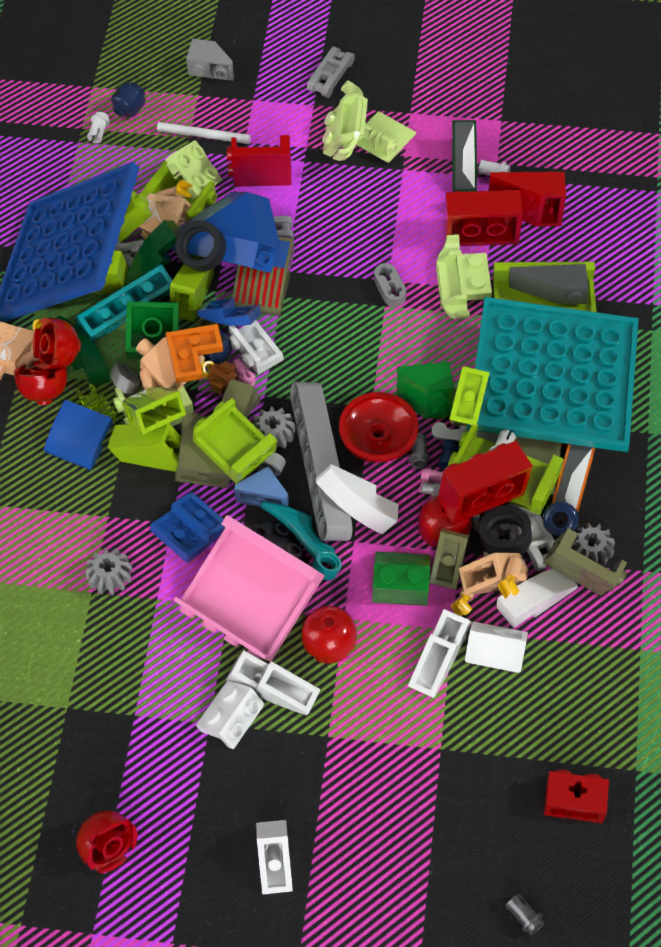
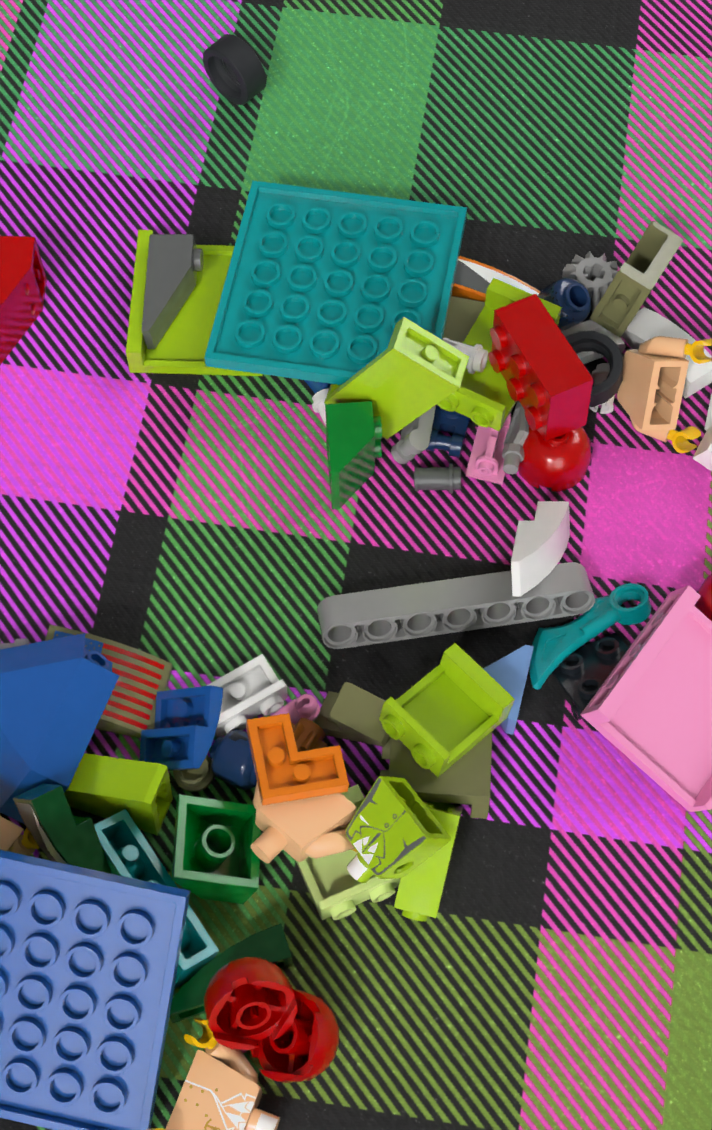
camera: 90 degrees left, 5 degrees up
(77, 434) = (398, 975): blue slope -> none
(96, 403) = (350, 945): clear neon green plate -> none
(111, 580) = (661, 902): light grey gear -> none
(125, 378) = (298, 895): light grey beam -> none
(188, 527) = (563, 799): blue slope -> none
(189, 231) = (107, 745): black tyre -> none
(277, 424) = (386, 659): light grey gear -> none
(378, 415) = (412, 501): red dish -> none
(394, 283) = (134, 504): light grey beam -> none
(401, 578) = (643, 507): green slope -> none
(448, 558) = (618, 446): olive slope -> none
(461, 278) = (138, 407): yellowish green plate -> none
(484, 217) = (38, 361): red brick -> none

